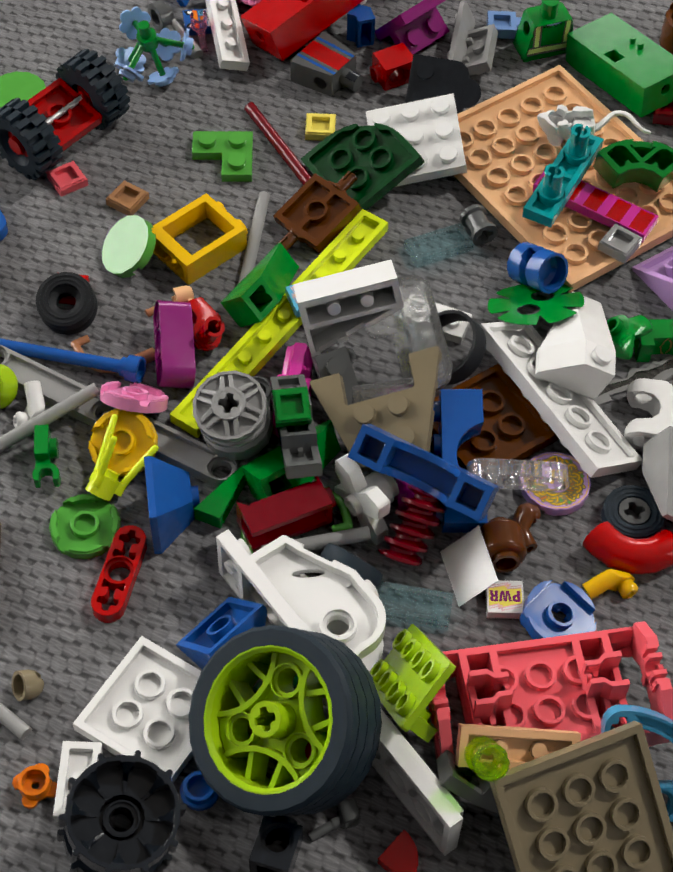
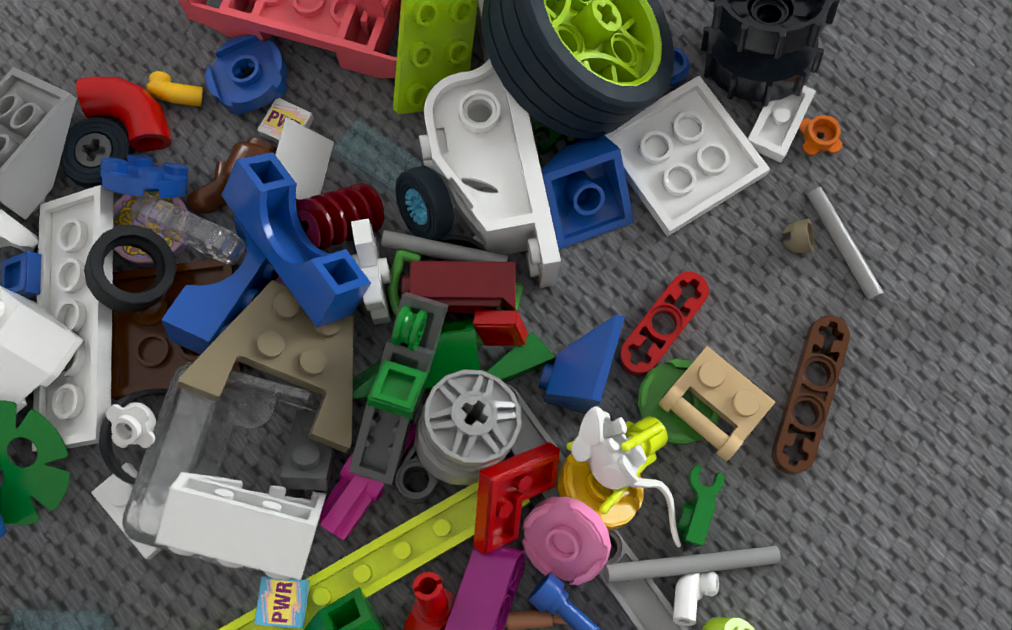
camera: 155 degrees left, 20 degrees up
(54, 535) = (726, 394): none -> tan plate
(129, 444) = (612, 467): none -> white animal
(183, 392) = (503, 490): none -> red tile
(243, 496) = (500, 328): none -> red tile
(303, 440) = (409, 328): none -> green bush
(457, 326) = (132, 424): none -> white plate
(512, 409) = (136, 237): none -> black tyre
(588, 508) = (141, 175): none -> blue plate
(616, 410) = (22, 274): none -> blue tile

